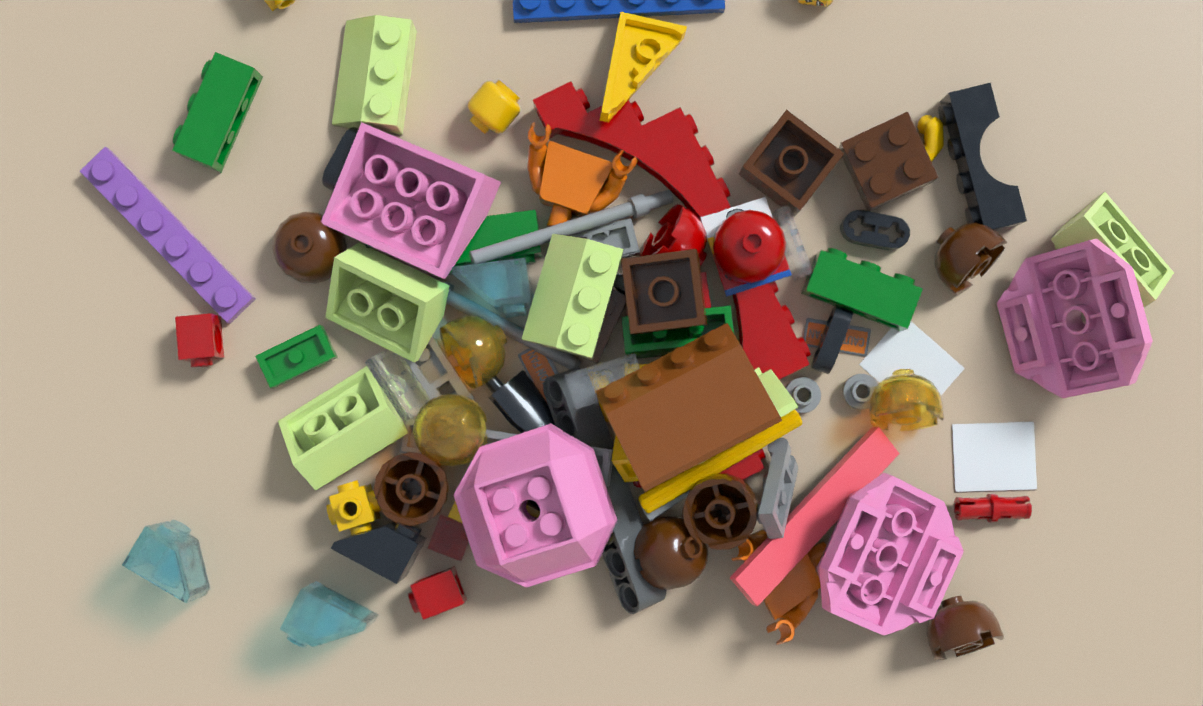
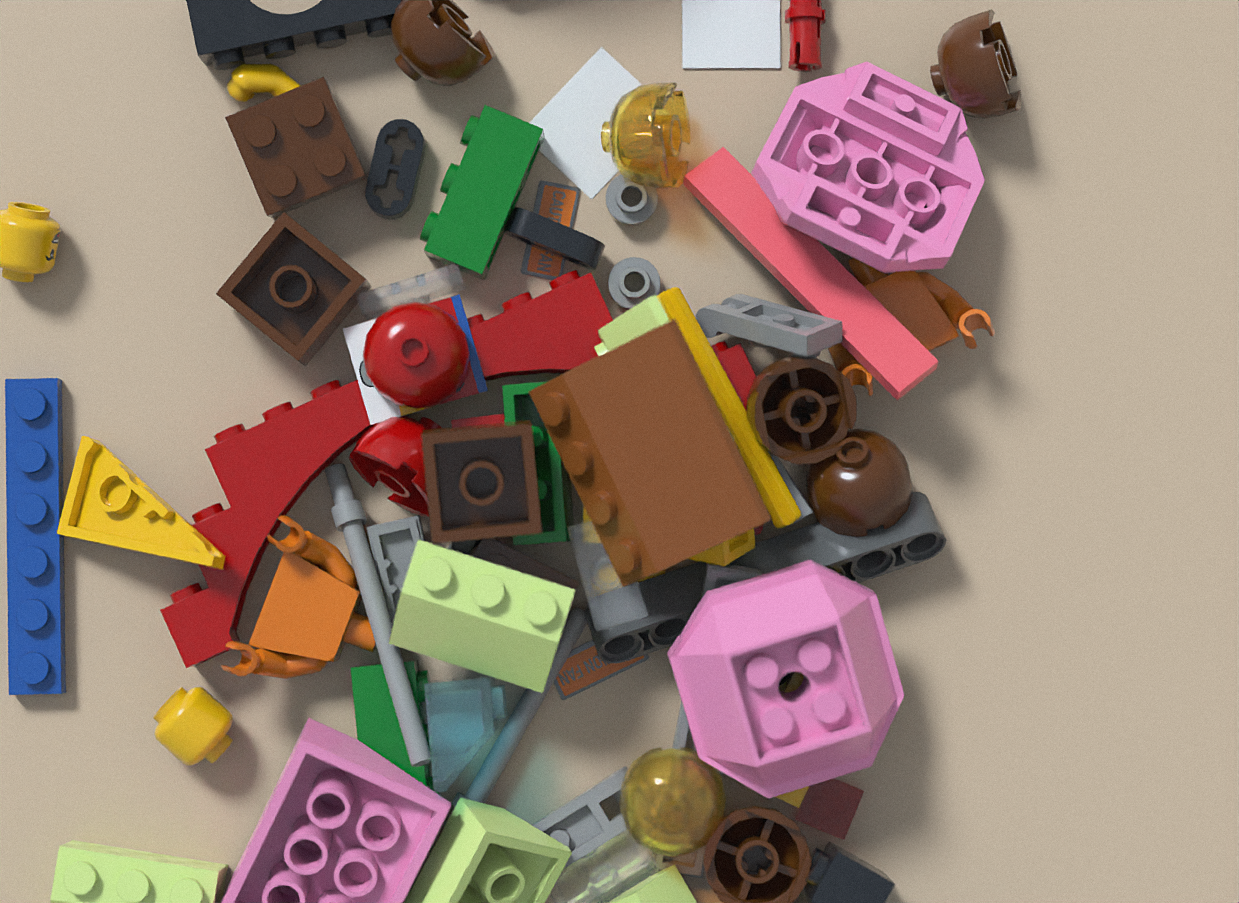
camera: 90 degrees left, 0 degrees up
(437, 593) = (910, 826): red brick -> none
(475, 347) = (553, 761): clear yellow cylinder -> none
(520, 402) = (633, 698): black piece -> none

